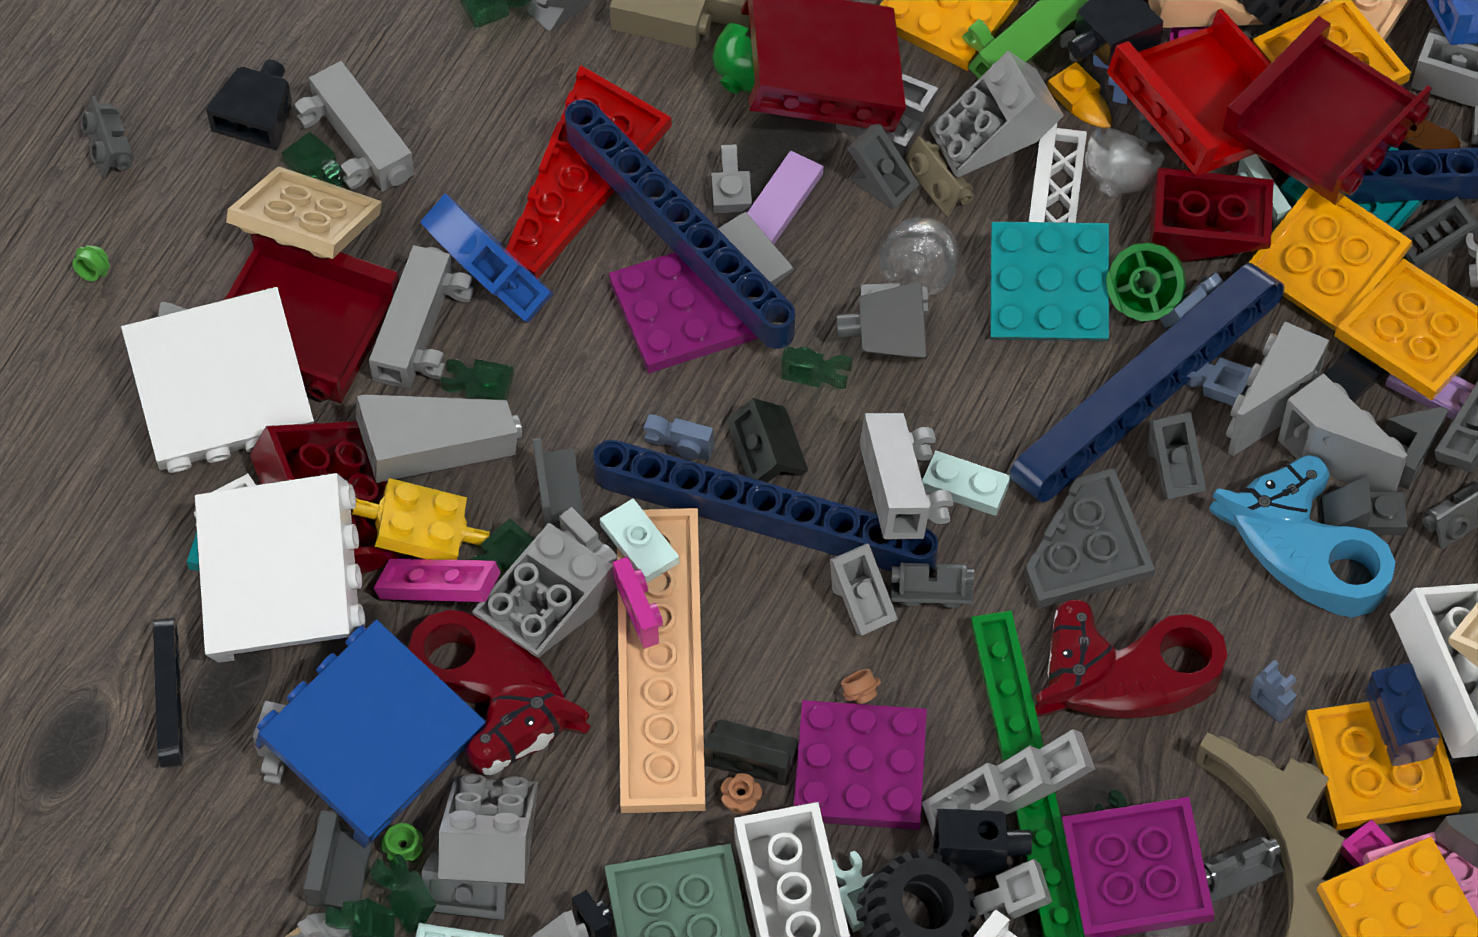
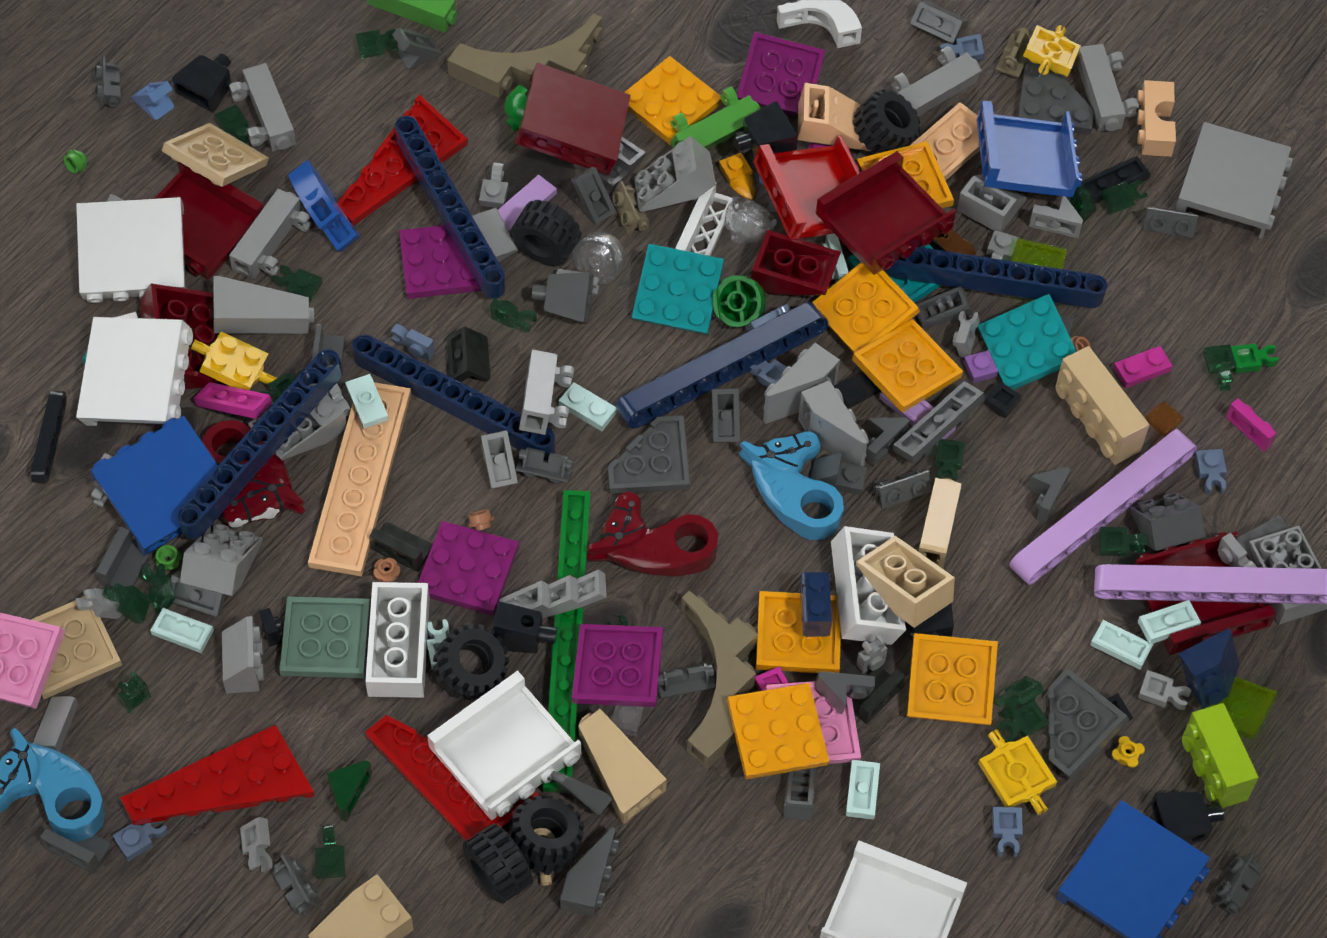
camera: 10 degrees right, 0 degrees up
(185, 145) = (154, 99): none -> medium blue slope
(507, 655) = (256, 454): none -> dark blue beam
(644, 616) = (355, 447): dark pink plate -> none
(834, 234) = (546, 232): none -> black tyre
(1019, 892) = (539, 665): light grey plate -> none
(1274, 692) = (741, 575): sand blue plate -> none

